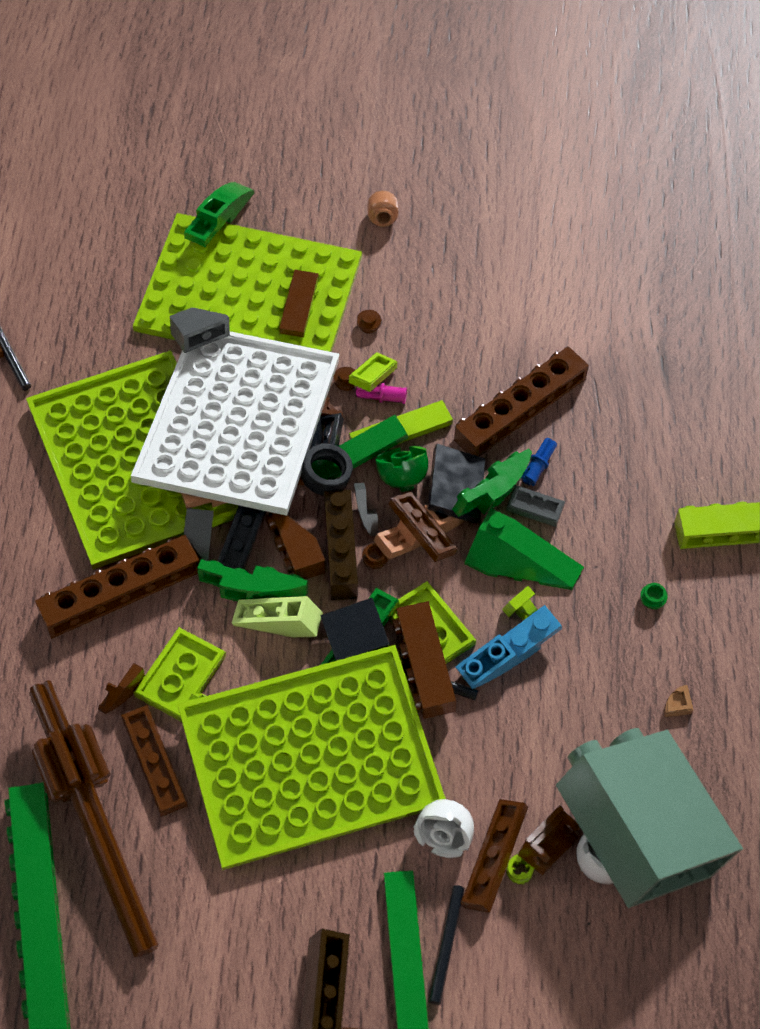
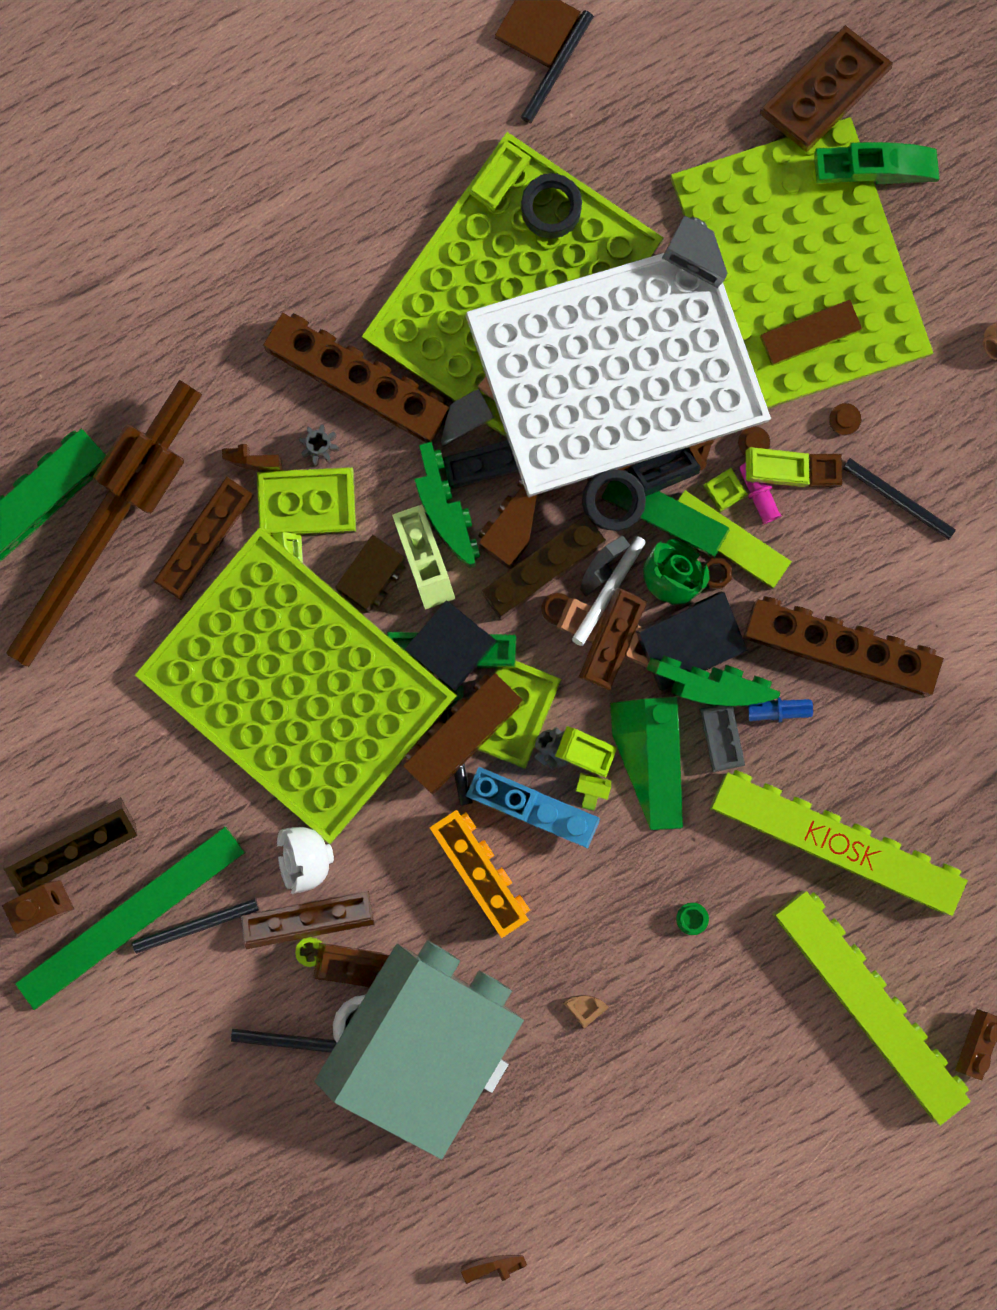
camera: 60 degrees right, 25 degrees up
(51, 416) = (499, 175): none -> lime tile
(93, 380) = (551, 181): none -> black tyre
(146, 637) = (313, 437): none -> dark grey gear
(148, 215) = (826, 88): none -> reddish brown tile
(264, 654) = (371, 574): none -> dark brown brick
(365, 412) = (725, 490): none -> lime tile
(387, 514) = (608, 590): none -> white bar
(395, 349) = (825, 470): none -> reddish brown tile
(422, 441) = (719, 573): none -> reddish brown tile
(442, 321) = (899, 498): none -> black bar
(474, 610) = (548, 745): none -> dark grey gear
(491, 589) = (586, 751): none -> lime tile
(536, 709) = (479, 874): none -> light orange brick
(581, 927) = (282, 1040): none -> black bar
(653, 478) = (839, 844): none -> lime brick

